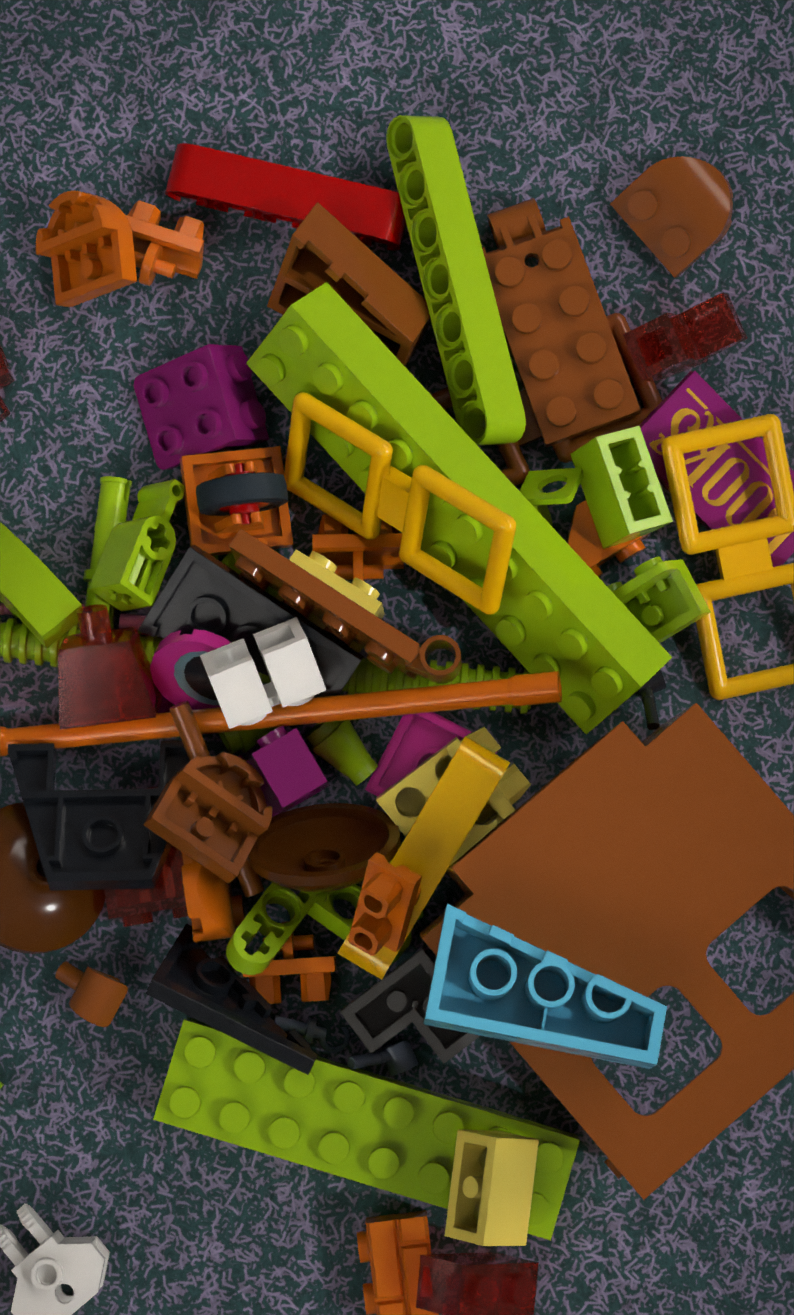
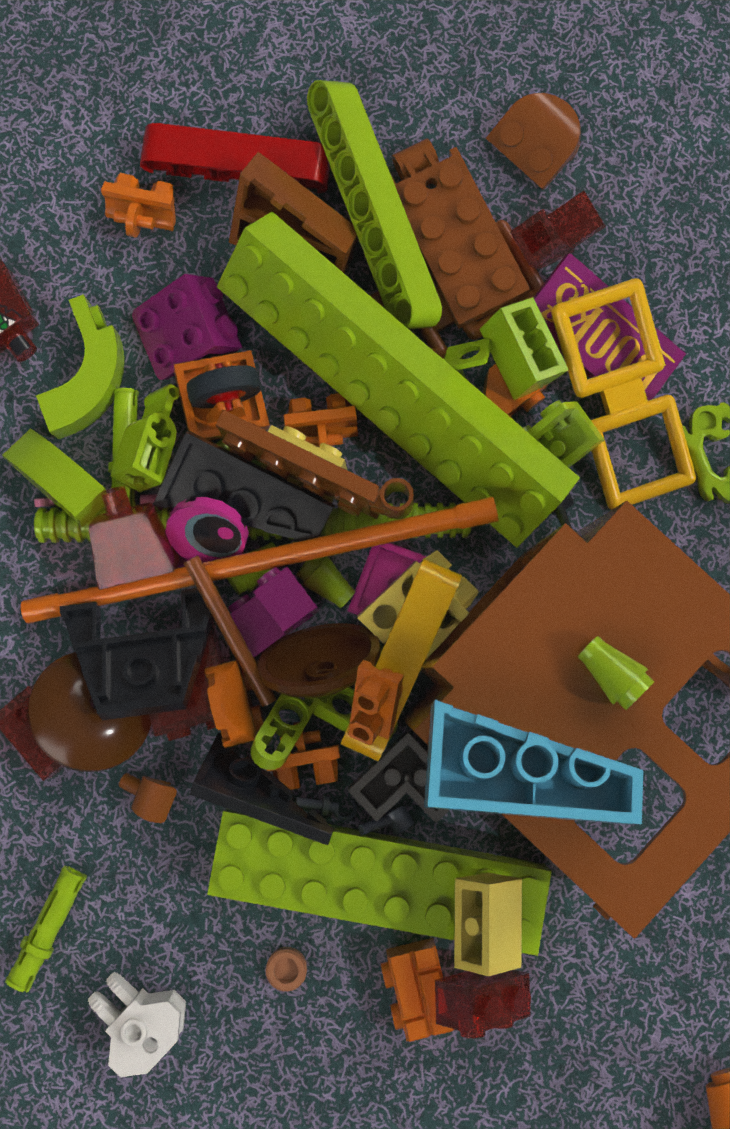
camera: 10 degrees left, 0 degrees up
(75, 474) = (92, 388): none -> lime arch
(87, 247) = (83, 210): orange slope -> none
(213, 812) = (227, 642): dark orange slope -> none
(238, 1227) = (286, 969): none -> nougat tile
(288, 663) = (273, 513): white piece -> none
(399, 502) = (351, 377): yellow bar -> none
(656, 897) = (616, 673): none -> lime cone

